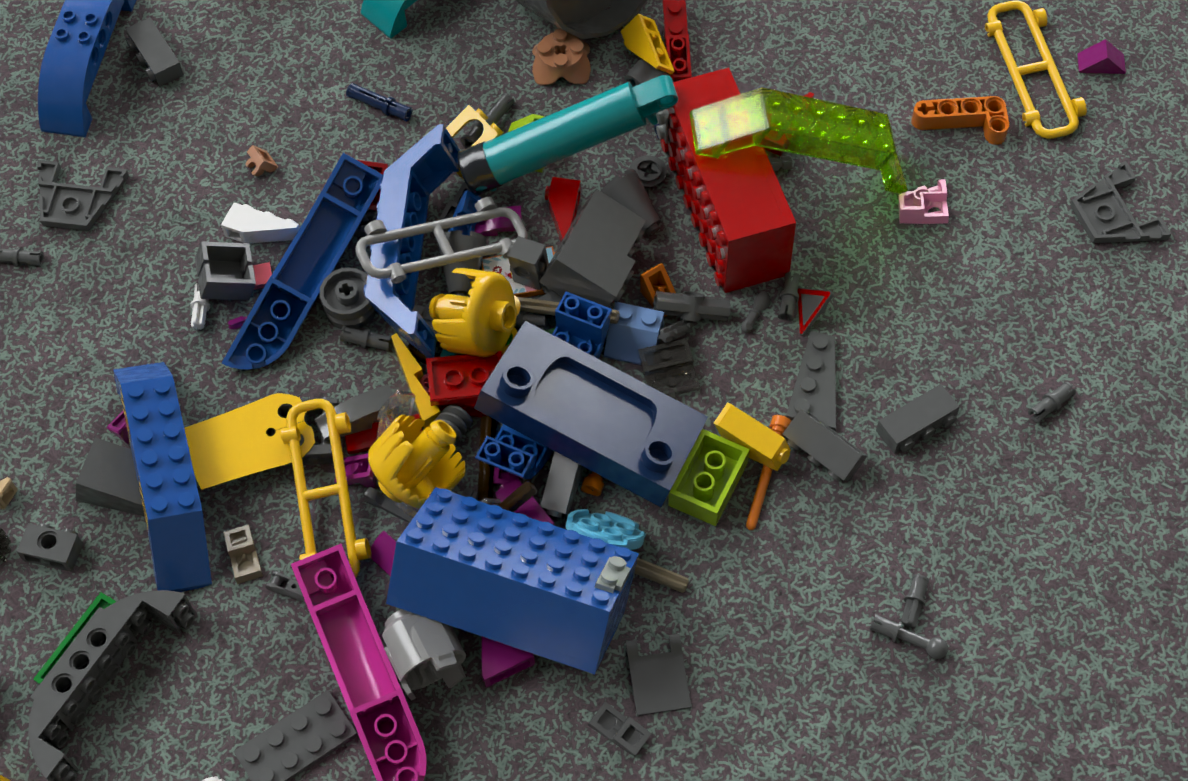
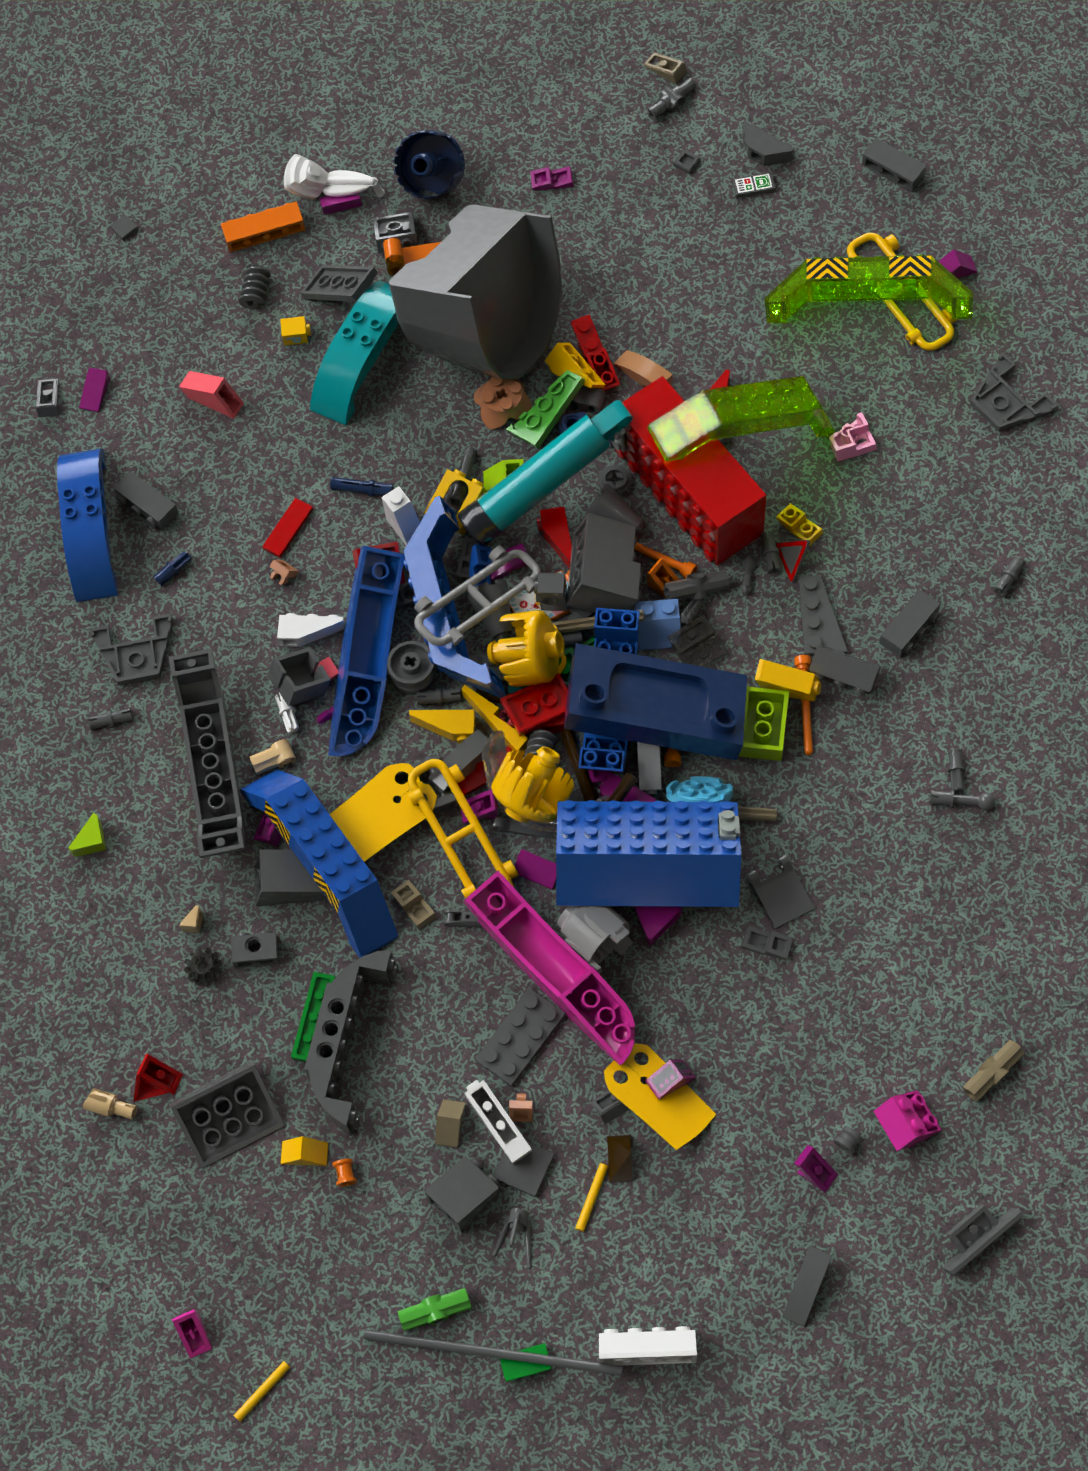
camera: 15 degrees left, 5 degrees up
(96, 323) = (209, 753): none -> dark grey slope
(150, 125) = (172, 568): none -> dark blue axle
(171, 347) = (276, 756): none -> tan piece
(285, 120) = (287, 527): none -> red tile
(363, 369) = (451, 724): none -> yellow slope
(401, 130) = (400, 514): none -> white slope
(604, 75) = (543, 416): none -> bright green wing
(686, 284) = (684, 568): none -> orange piece
(715, 59) = (641, 368): none -> medium nougat slope
(831, 276) = (798, 524): none -> yellow slope
(963, 113) = (830, 358): orange beam -> none
(997, 43) = (869, 279): none -> clear neon green slope

